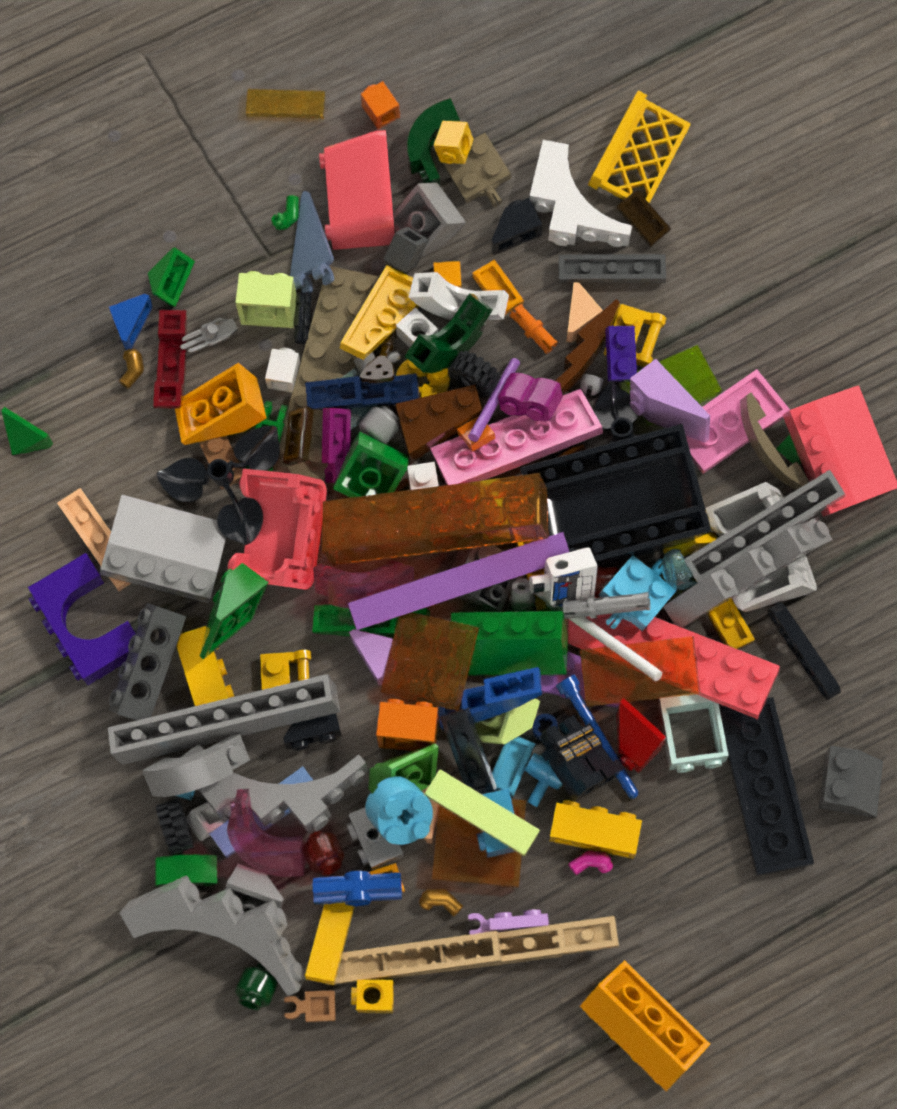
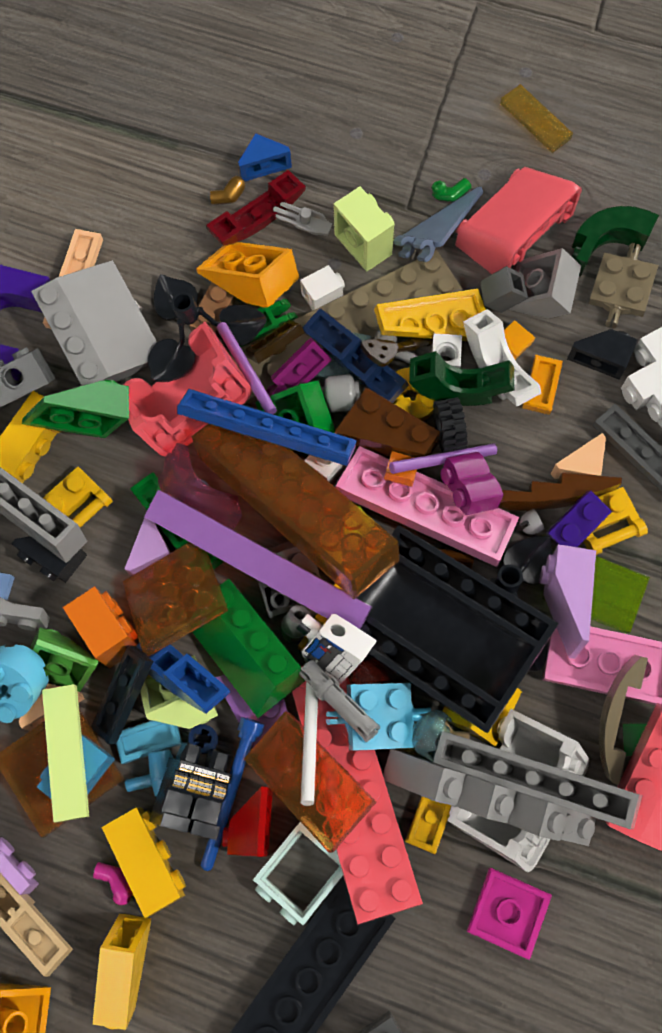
camera: 50 degrees right, 0 degrees up
(23, 435) = (109, 167): green slope -> none
(170, 276) = (324, 157): green slope -> none
(302, 318) = (379, 268): black axle -> none
(326, 476) = (246, 368): none -> medium lavender bar
(367, 493) = (267, 427): none -> blue tile
(380, 105) = (602, 176): orange brick -> none
(453, 142) = (625, 246): yellow brick -> none
(533, 329) = (534, 439): orange pin -> none
(656, 899) = (120, 971): none -> yellow slope
(804, 651) = (463, 910): black beam -> none
(831, 625) = (509, 913): none -> dark pink tile

